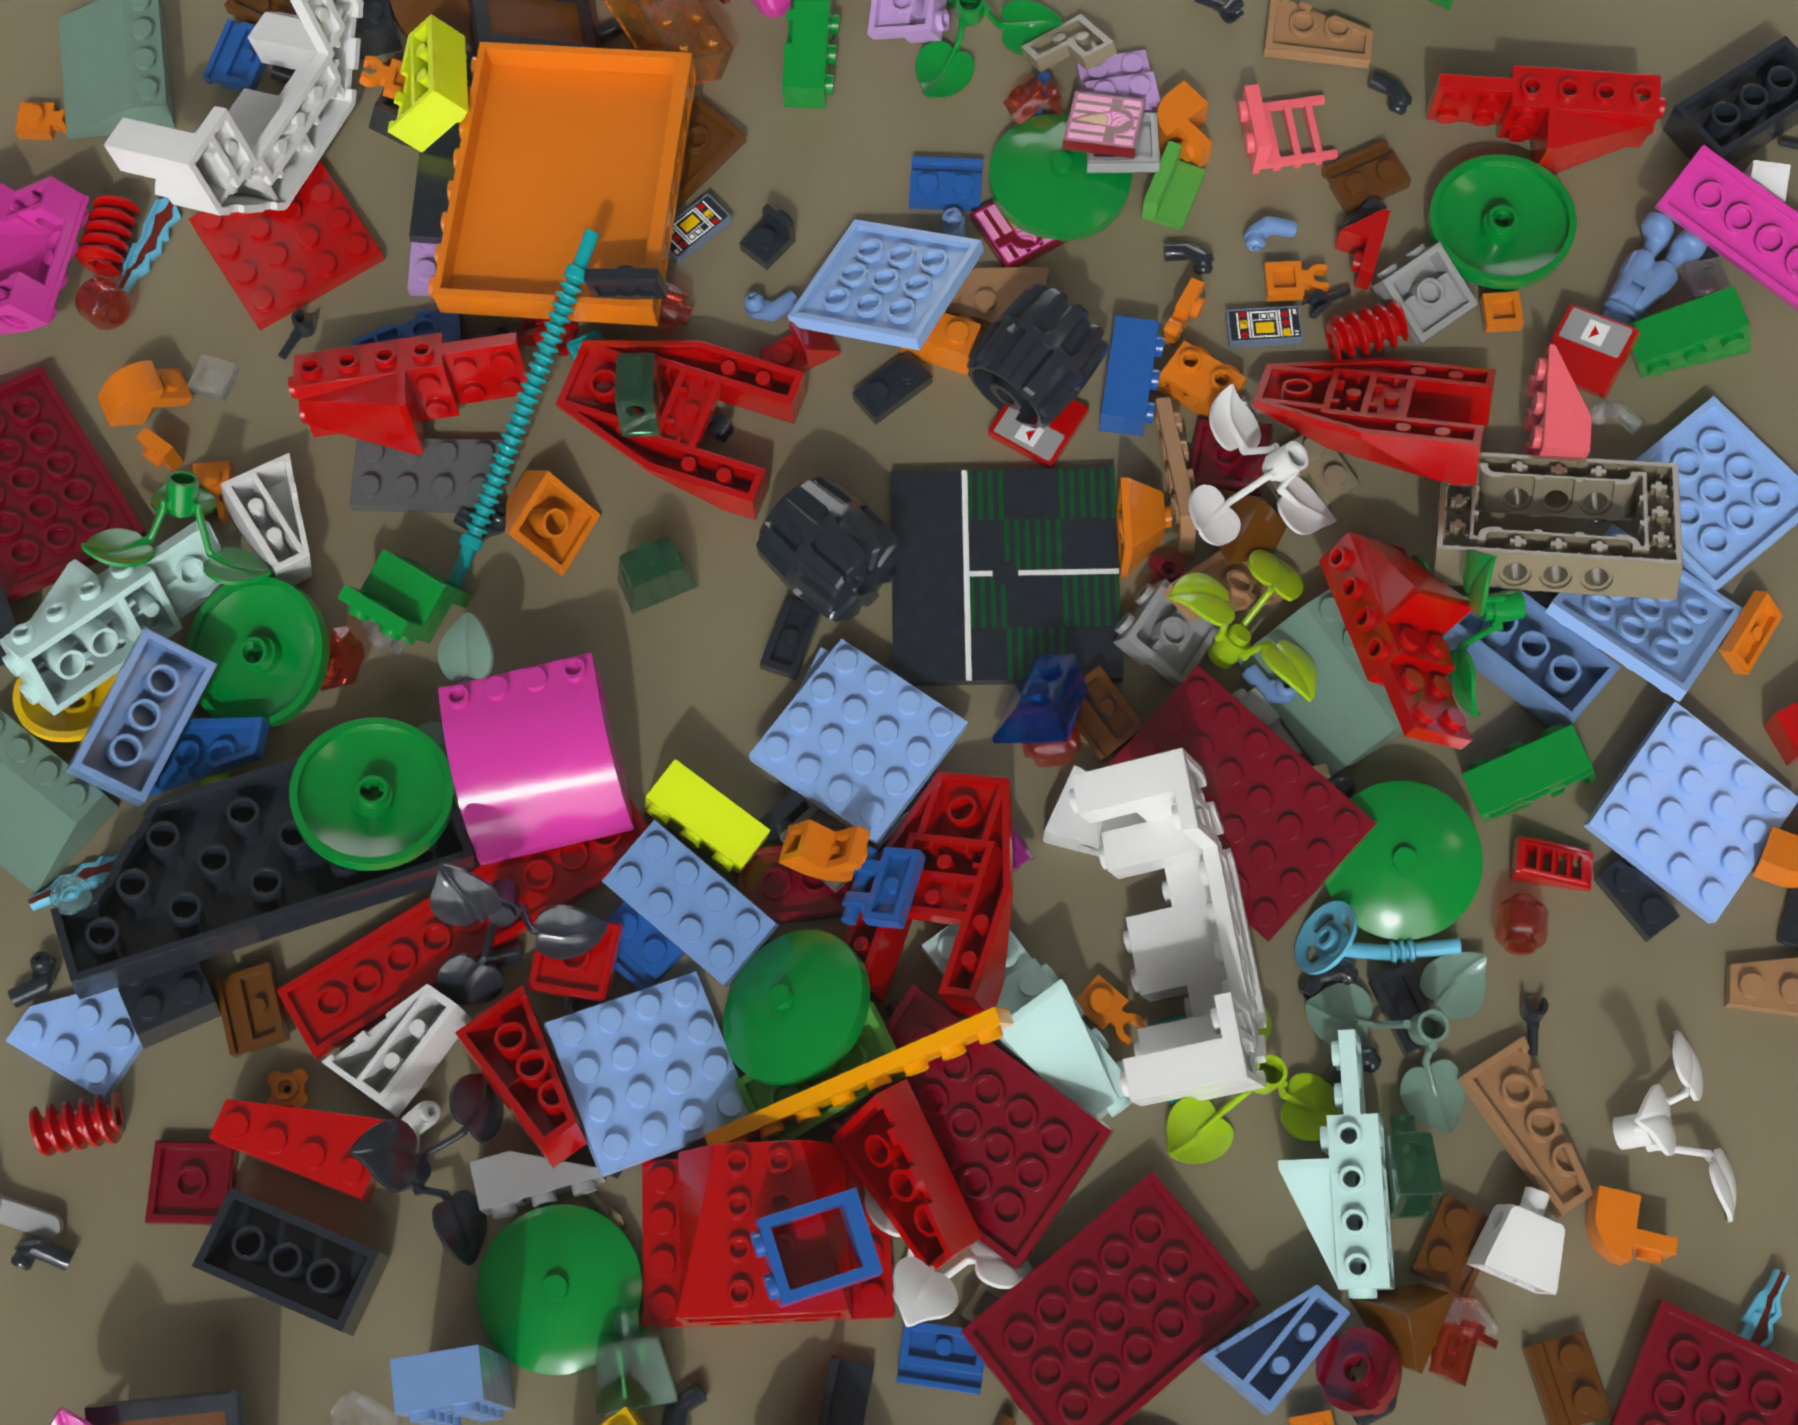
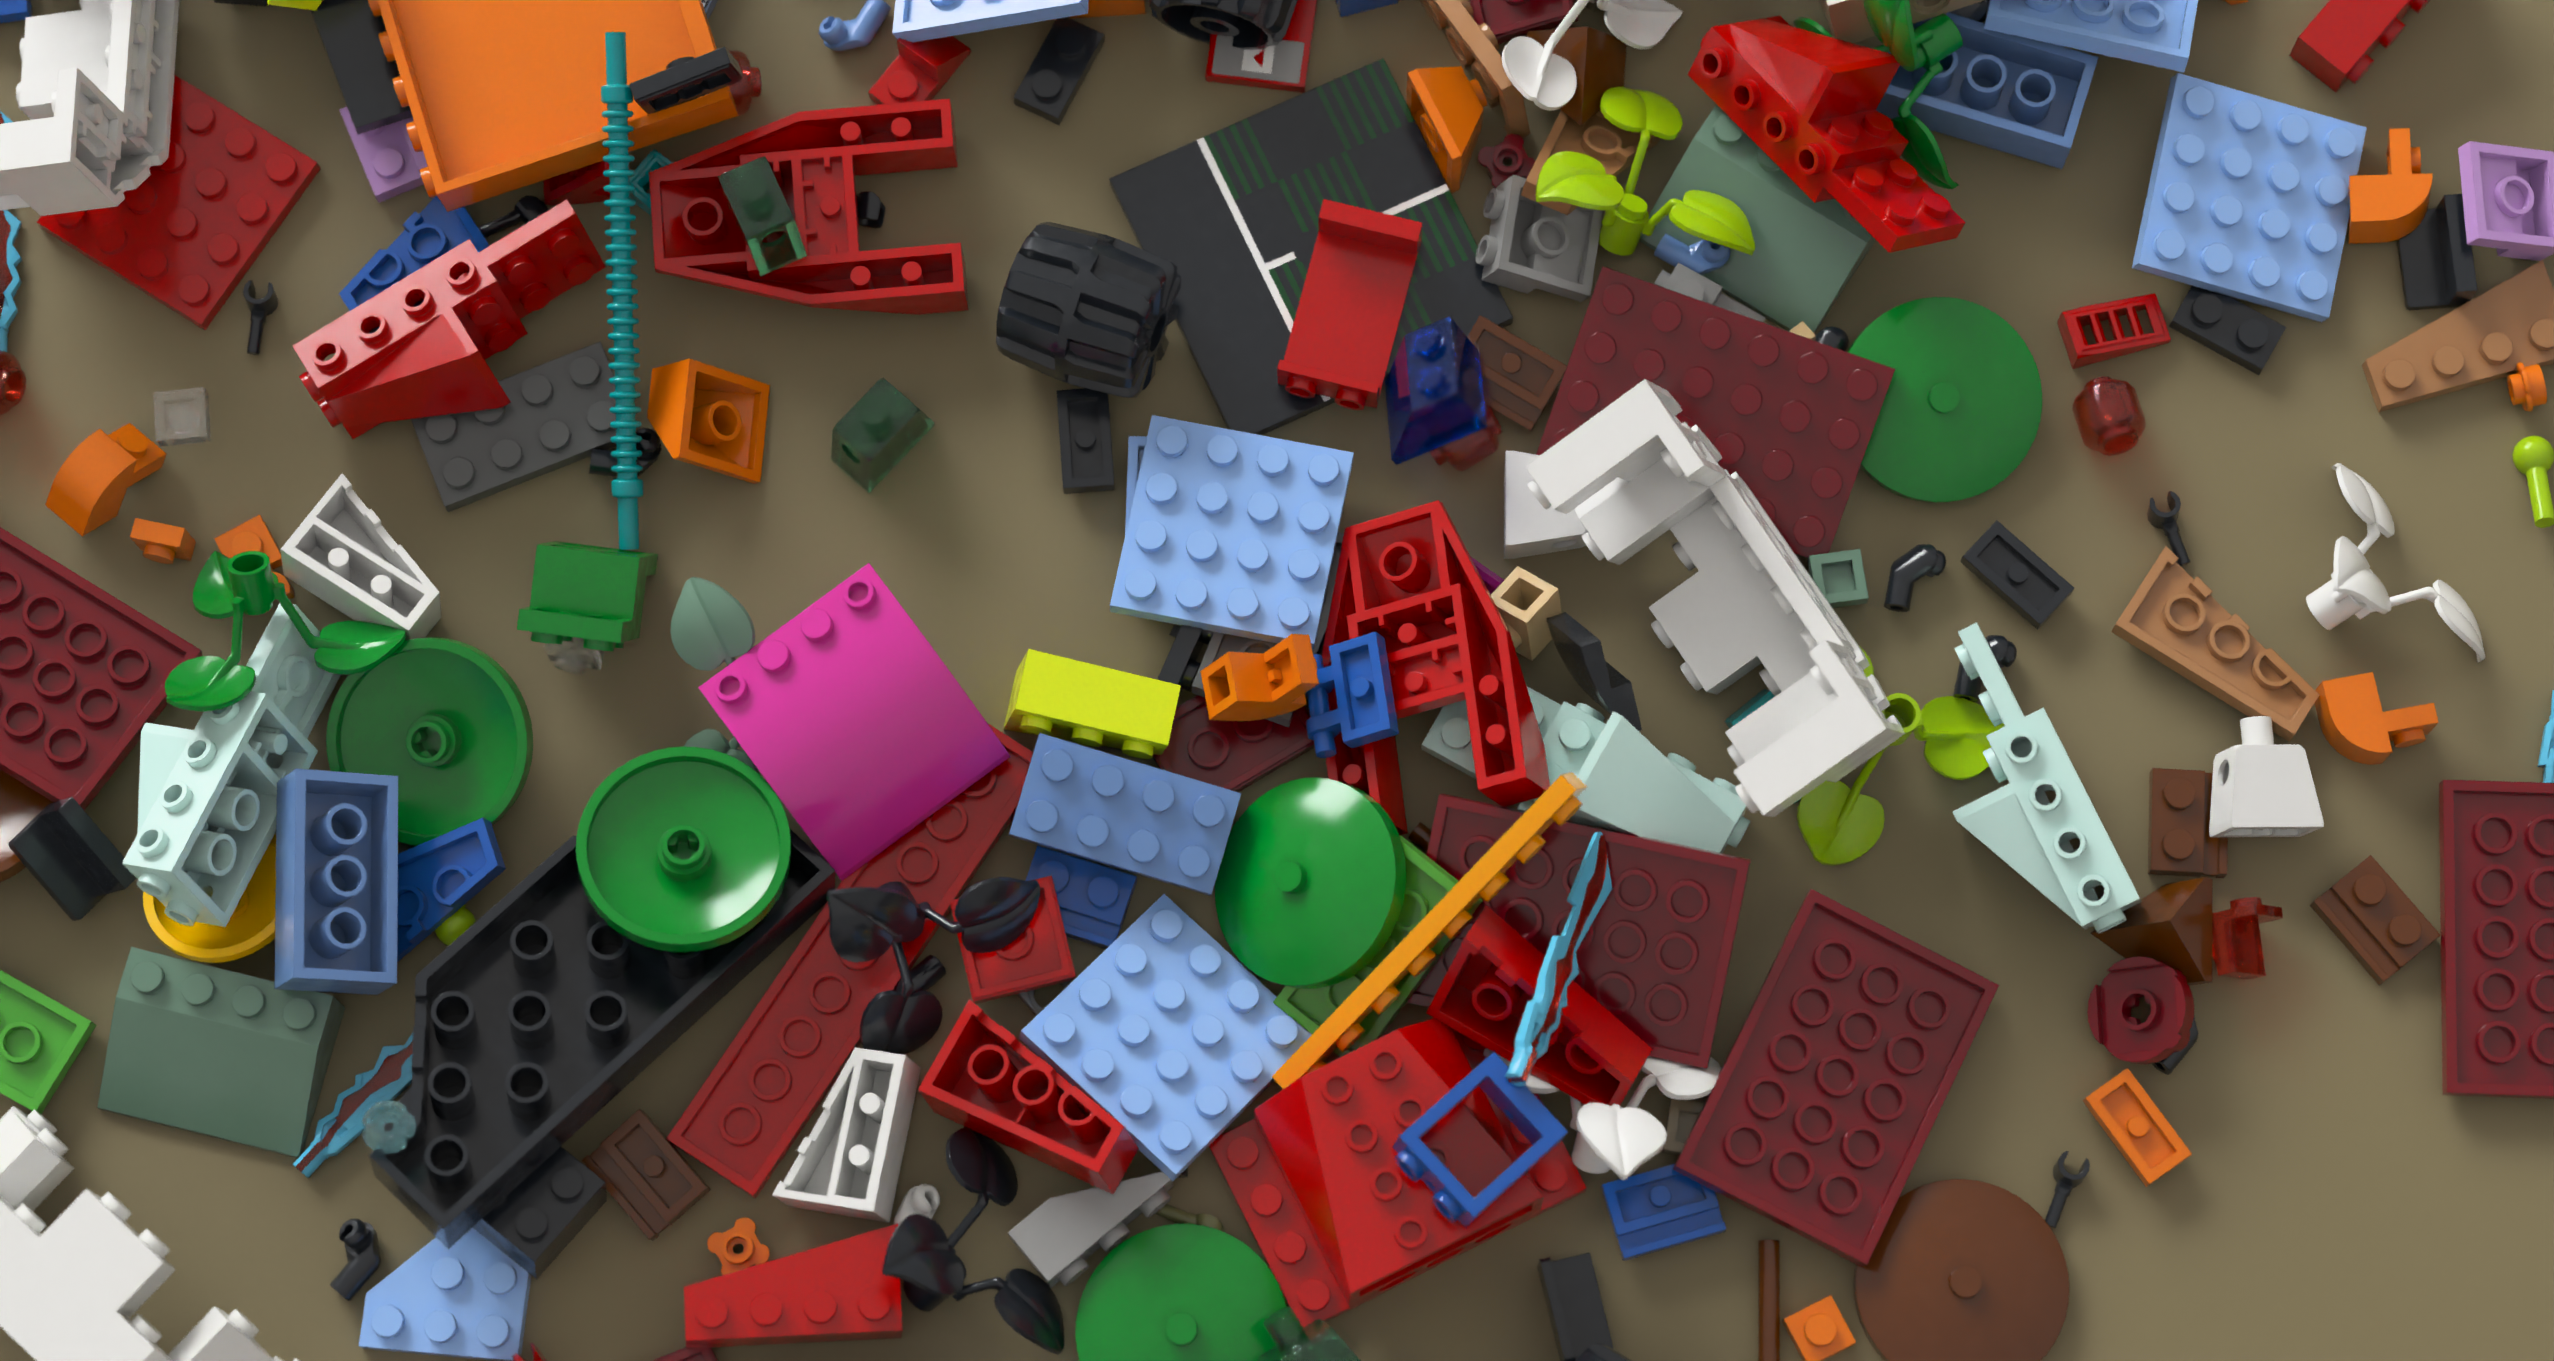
camera: 25 degrees left, 5 degrees up
(344, 659) = (546, 701): clear red bracket -> none
(938, 1143) = (1560, 962): none -> medium azure sword
(1013, 622) = (1350, 305): none -> red panel
(1037, 884) = (1524, 606): none -> tan brick
(1065, 944) = (1586, 663): none -> black slope
(1105, 1007) = (1668, 724): orange plate -> none
(1274, 956) = (1840, 577): none -> sand green plate
(1277, 1349) = (2041, 1026): medium blue wedge -> none
(1334, 942) = (1904, 532): medium azure dish -> none
(1411, 1170) = (2104, 757): clear green torso -> none
(1457, 988) = (2065, 524): sand green plant -> none
(1474, 1311) = (2237, 886): clear arm -> none
(1528, 772) = (2042, 231): green wedge -> none

